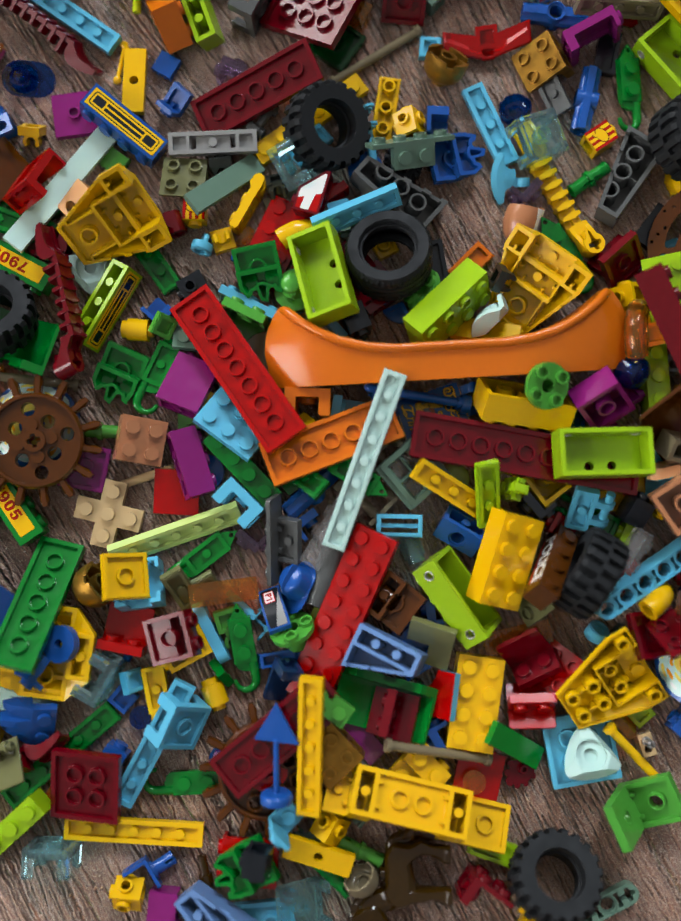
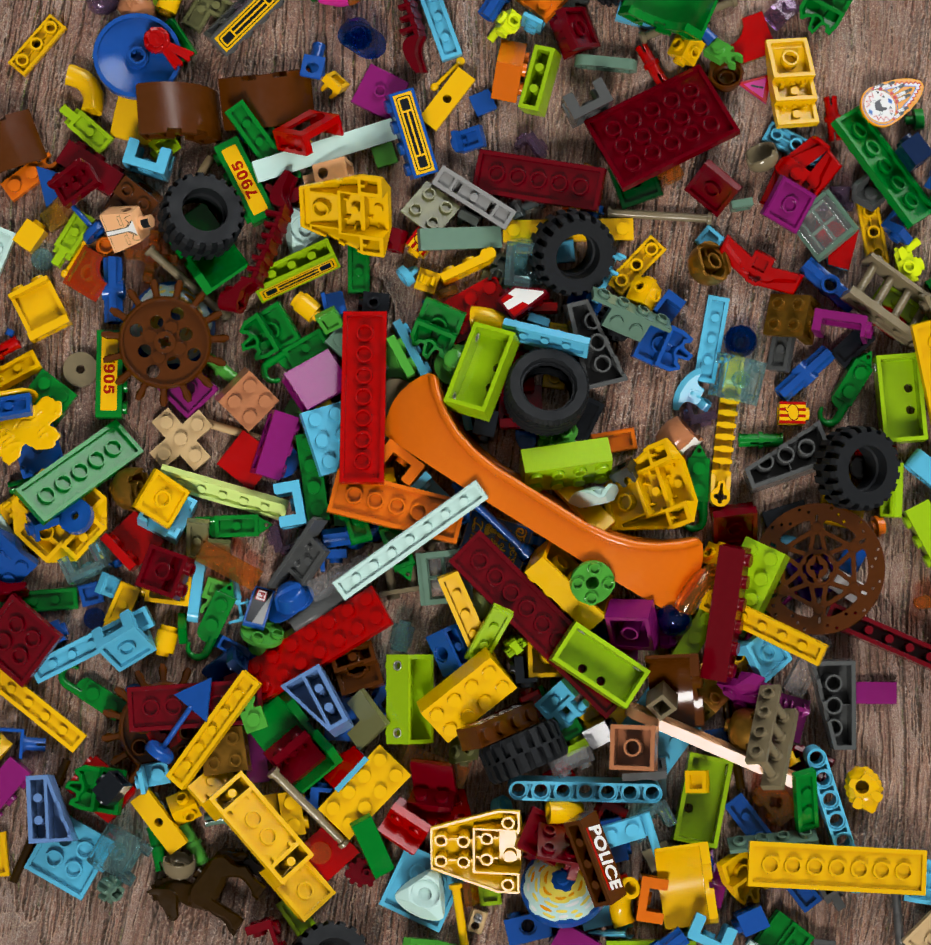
camera: 30 degrees right, 0 degrees up
(379, 525) = (418, 621): medium azure tile -> none

